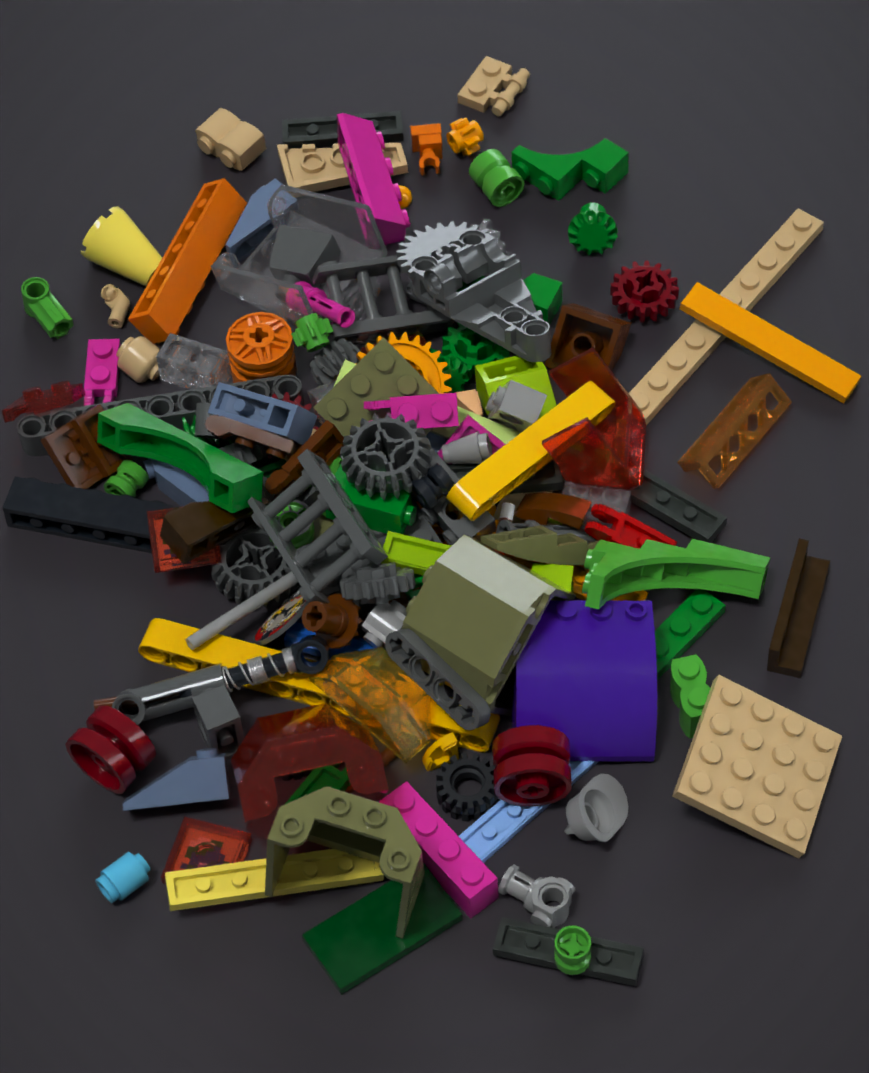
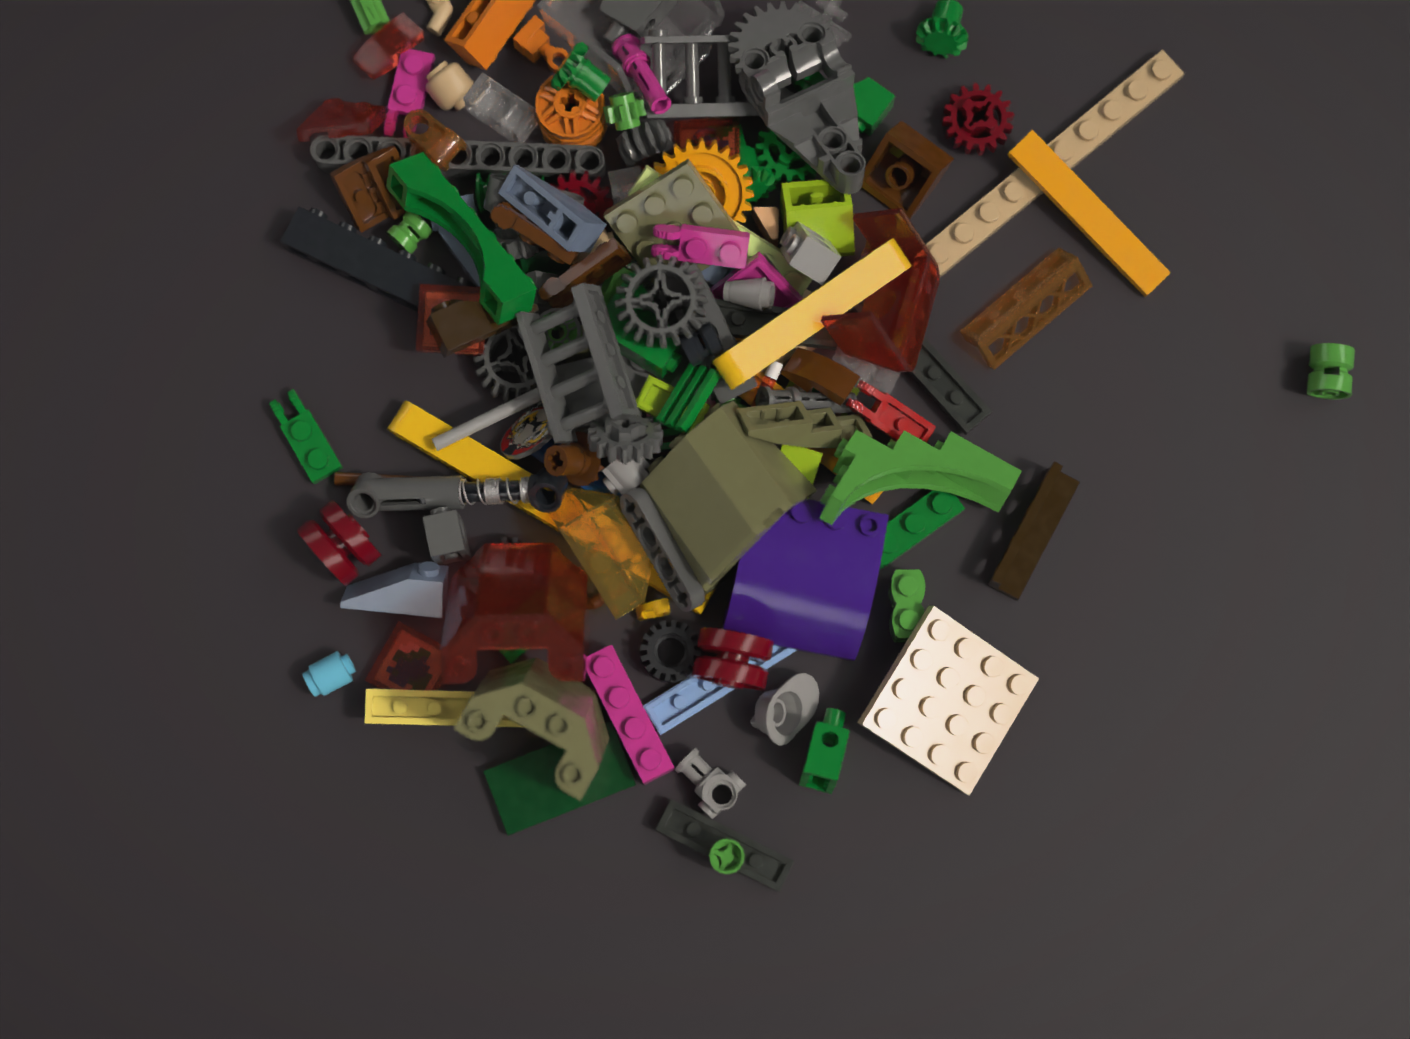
camera: 10 degrees right, 25 degrees up
(59, 678) = (307, 440): none -> green hinge
(72, 341) = (383, 49): none -> clear red slope
(132, 387) = (437, 142): none -> clear orange piece
(212, 311) = (534, 43): none -> orange piece
(265, 305) = (580, 74): none -> green gear
(431, 536) = (684, 396): none -> green tile
(648, 830) = (823, 762): none -> green torso

